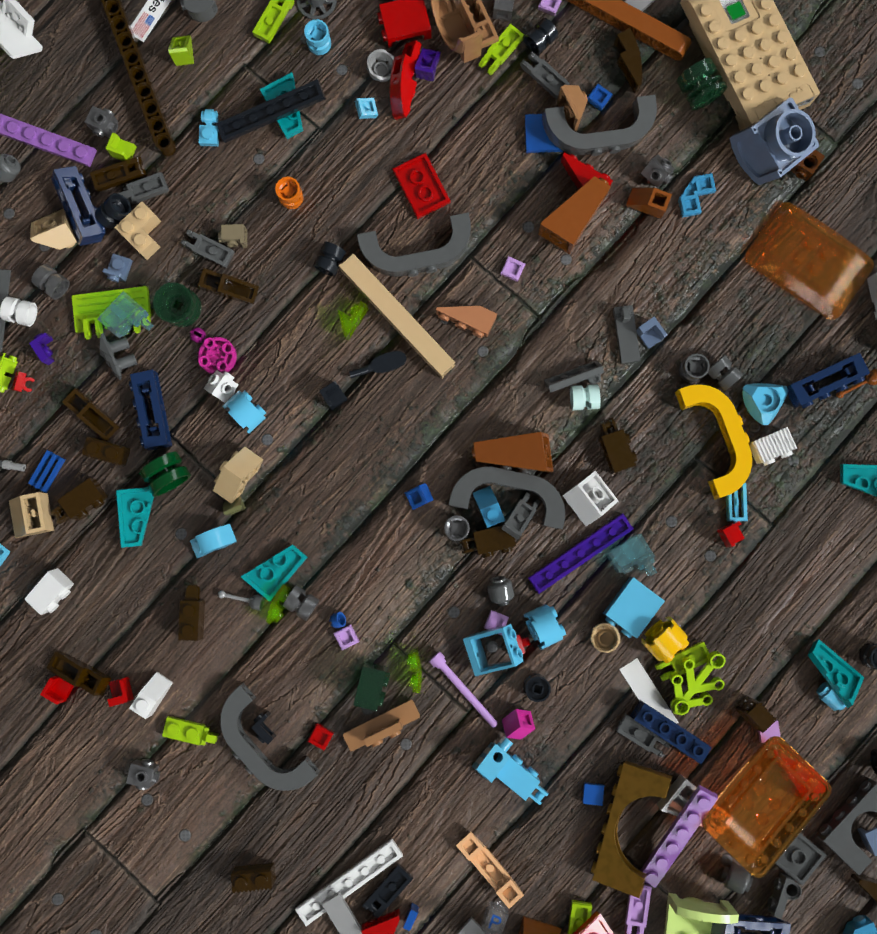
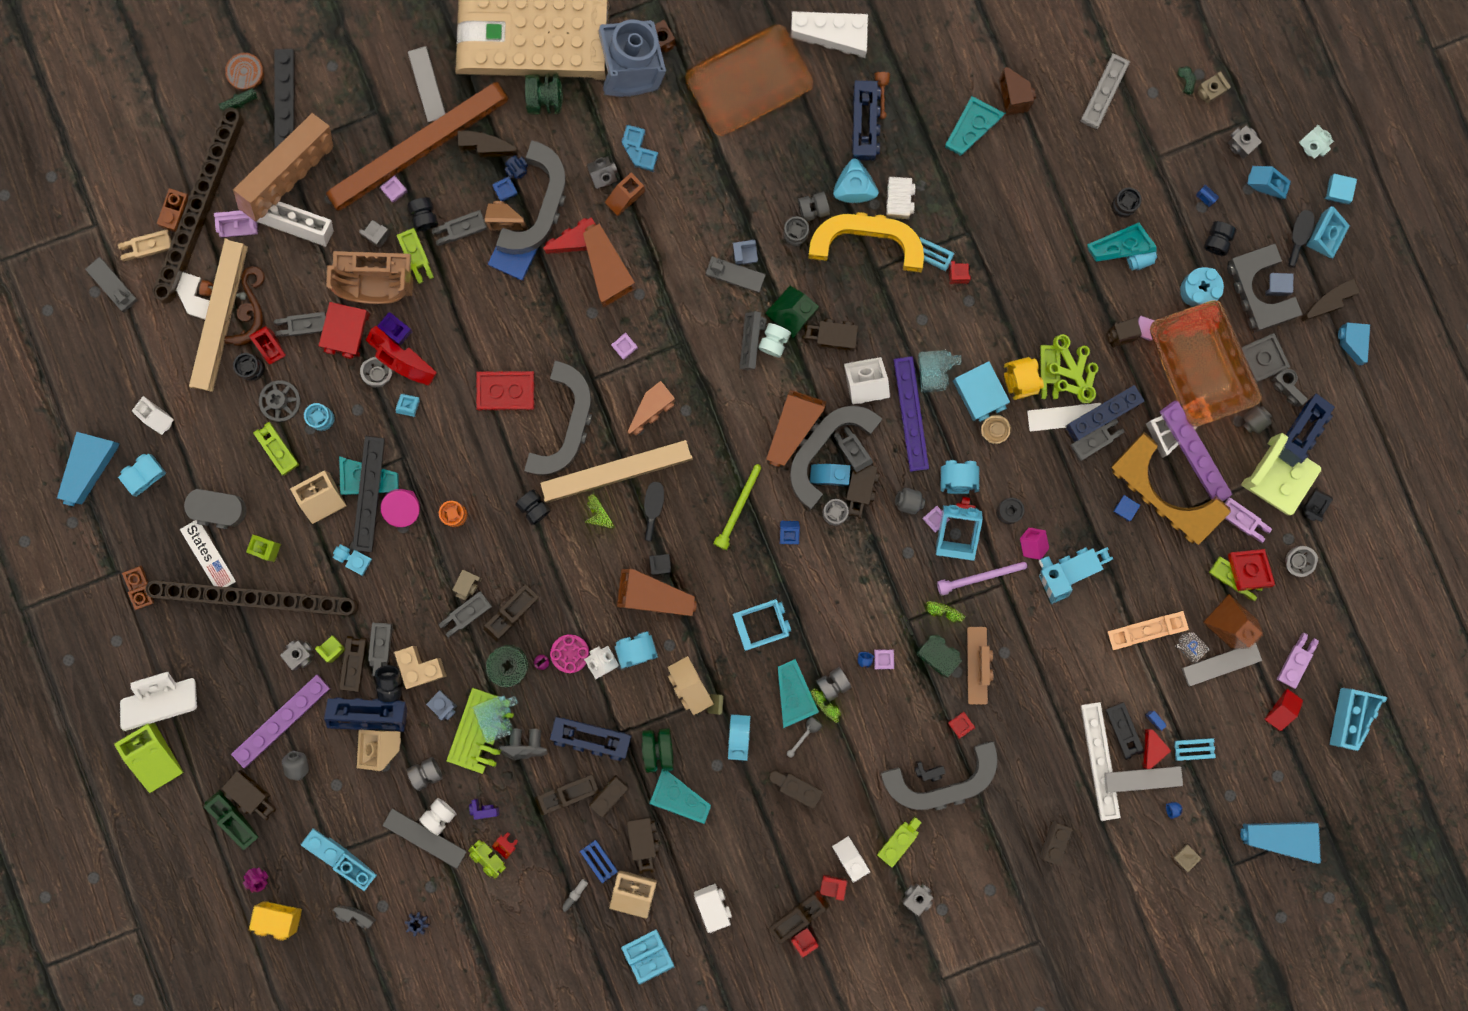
camera: 65 degrees left, 0 degrees up
(248, 71) = (318, 496): none -> tan slope
(272, 145) = (400, 507): none -> dark pink tile
(300, 399) = (648, 594): none -> dark orange slope
(308, 498) = (785, 627): none -> medium azure window
(382, 440) = (723, 540): none -> lime piece
(620, 401) = (792, 310): none -> dark green slope
(623, 95) = (516, 167): none -> dark blue gear
(845, 765) = (1206, 278): none -> medium azure brick

